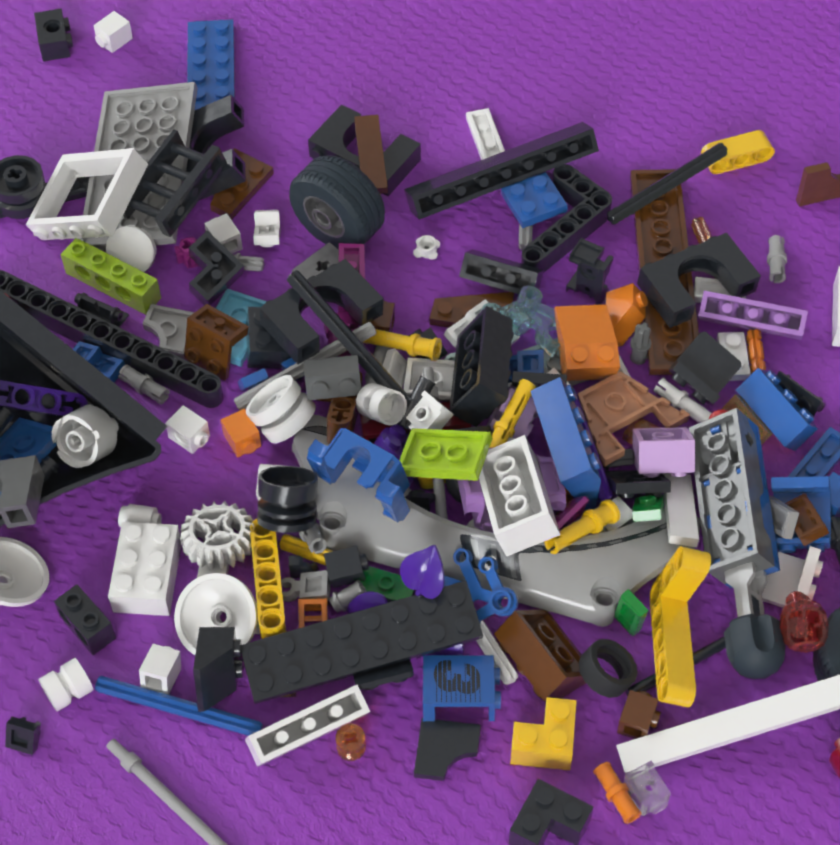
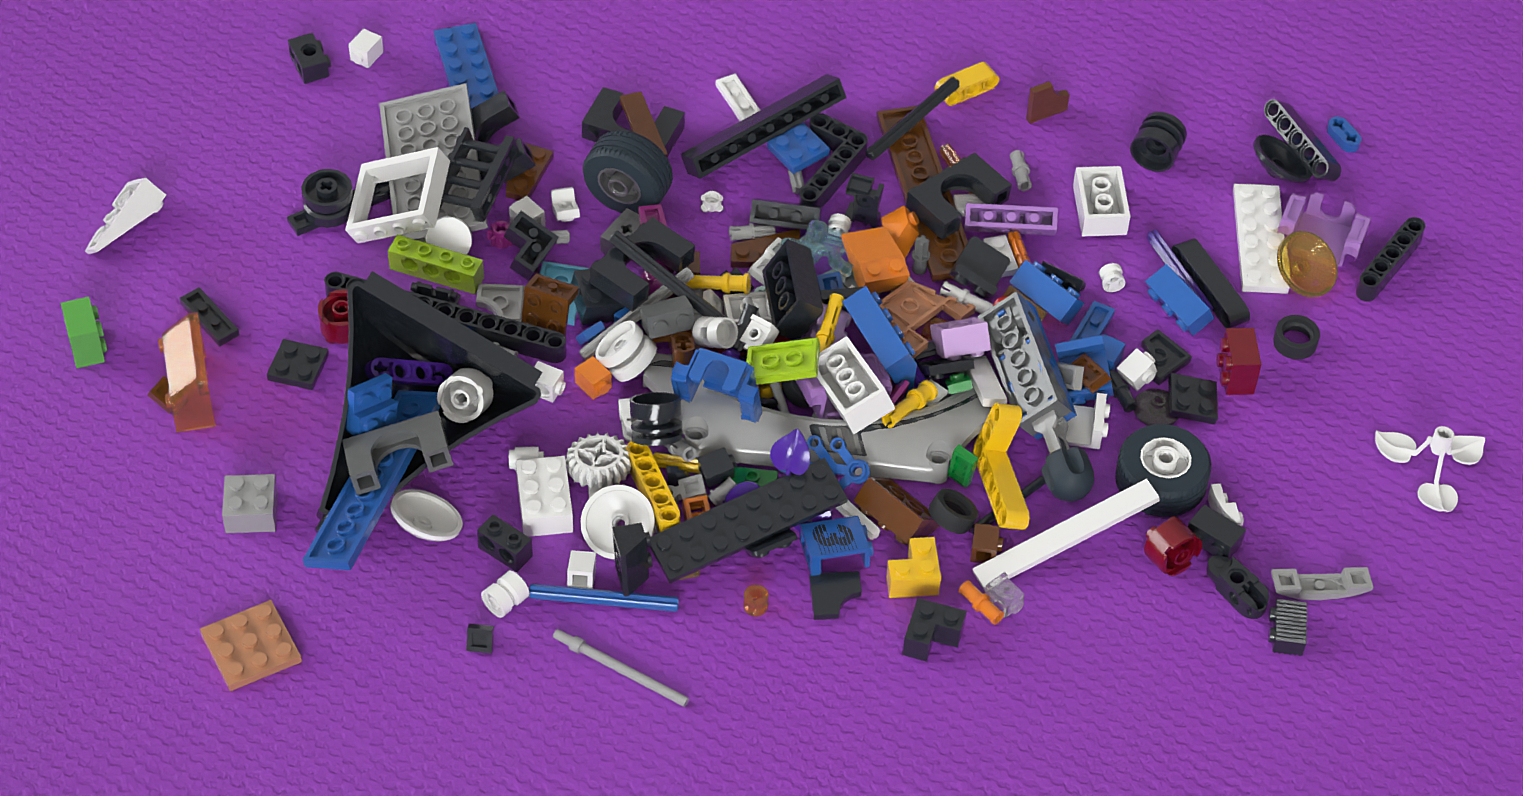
camera: 15 degrees left, 5 degrees down
(307, 725) = (718, 591): white brick -> none
(459, 287) = (750, 231): none -> light grey axle
(557, 294) = (838, 224): none -> white wheel
(803, 623) = (1104, 450): clear red piece -> none

